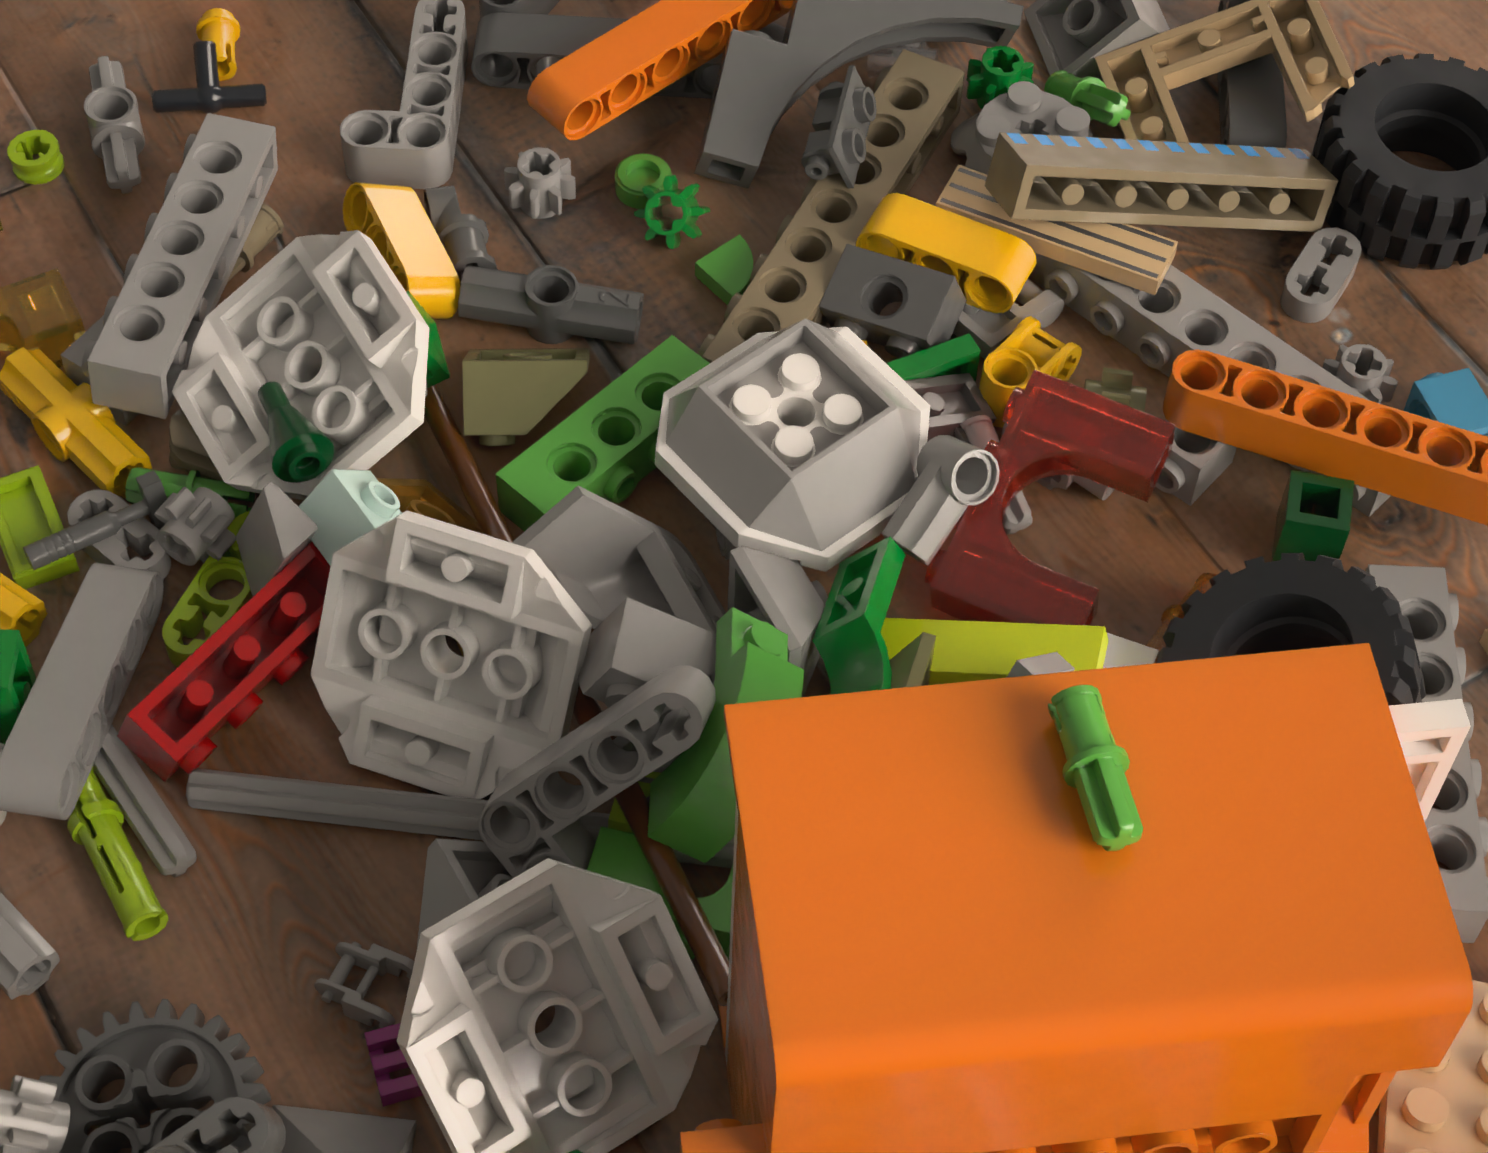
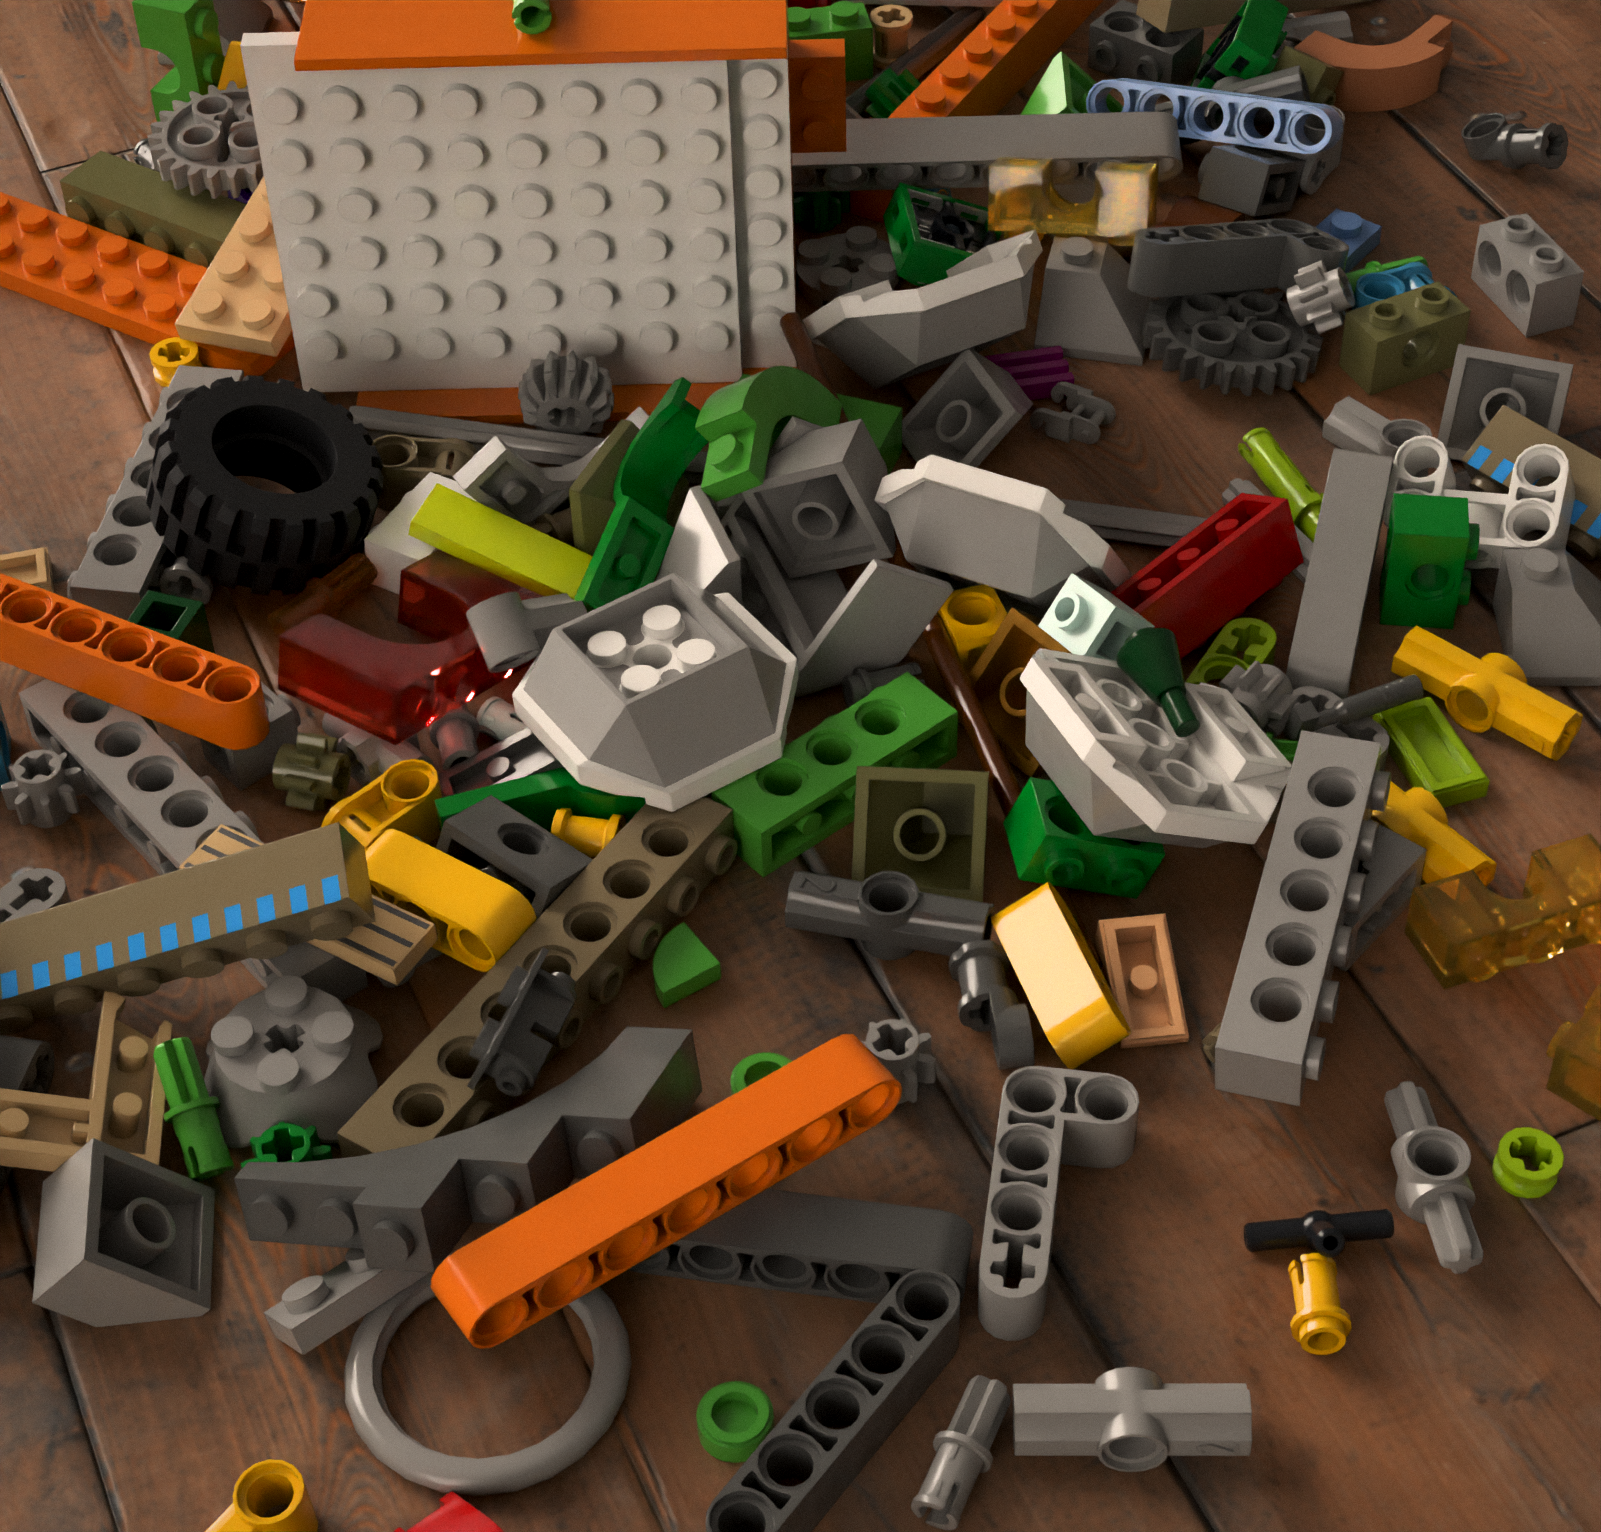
camera: 170 degrees left, 10 degrees down
(272, 536) = (1162, 603): light grey slope -> none
(601, 767) = (900, 419): light grey beam -> none
(665, 225) = (738, 1006): green gear -> none

